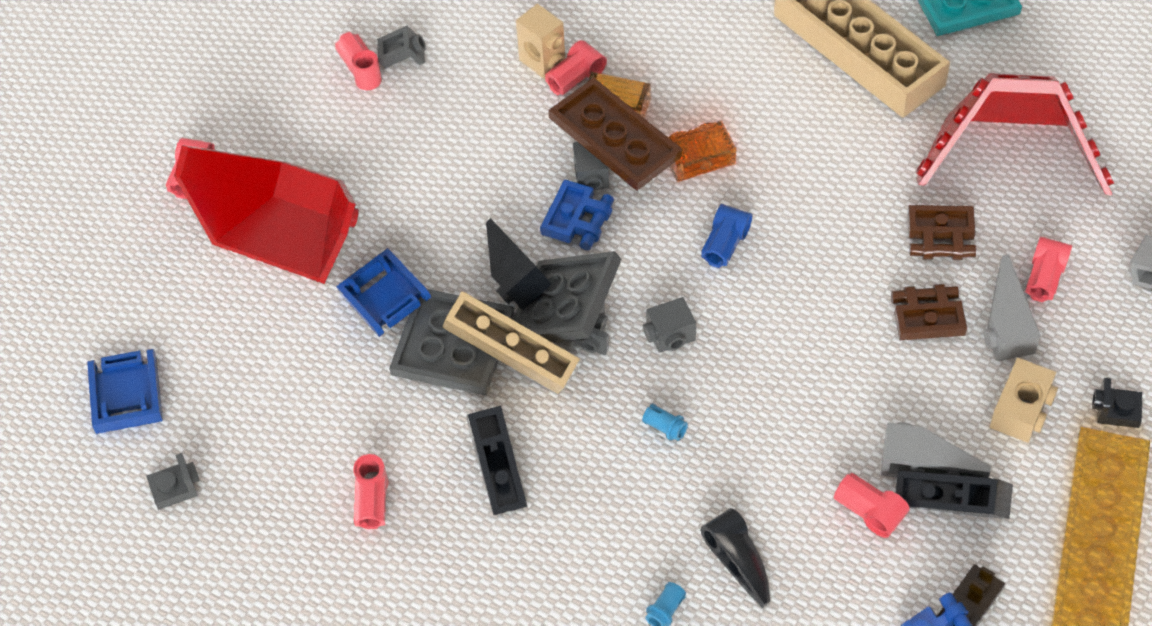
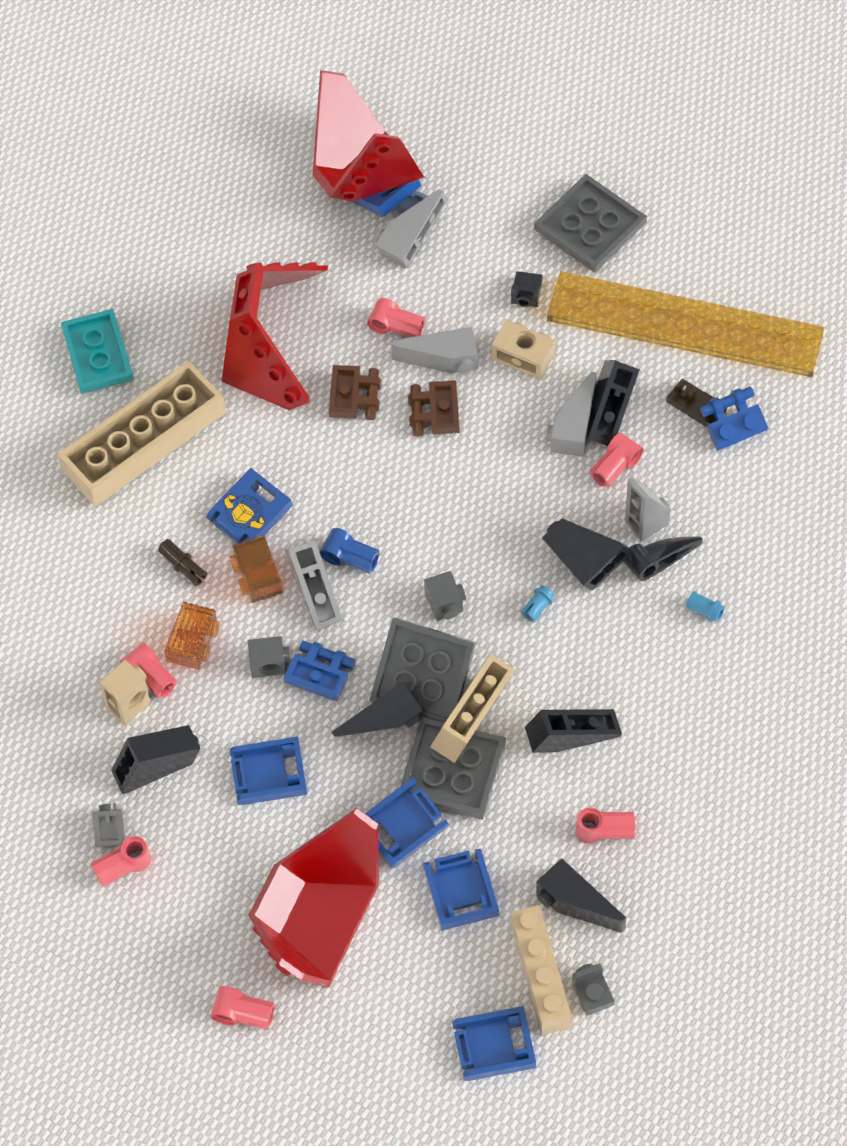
camera: 90 degrees left, 5 degrees up
(196, 426) = (540, 970): none -> tan brick
(285, 459) = (575, 897): none -> black slope
(315, 353) = (461, 885): none -> blue container
(459, 175) = (262, 773): none -> blue container
(472, 75) = (154, 757): none -> black slope
(615, 134) = (249, 625): reddish brown plate -> none
(684, 200) = (314, 584): none -> light grey slope
(707, 89) = (182, 562): none -> dark brown axle
(731, 464) = (585, 552): none -> black slope
(771, 137) = (245, 512): none -> blue container
(790, 523) = (645, 510): none -> light grey slope

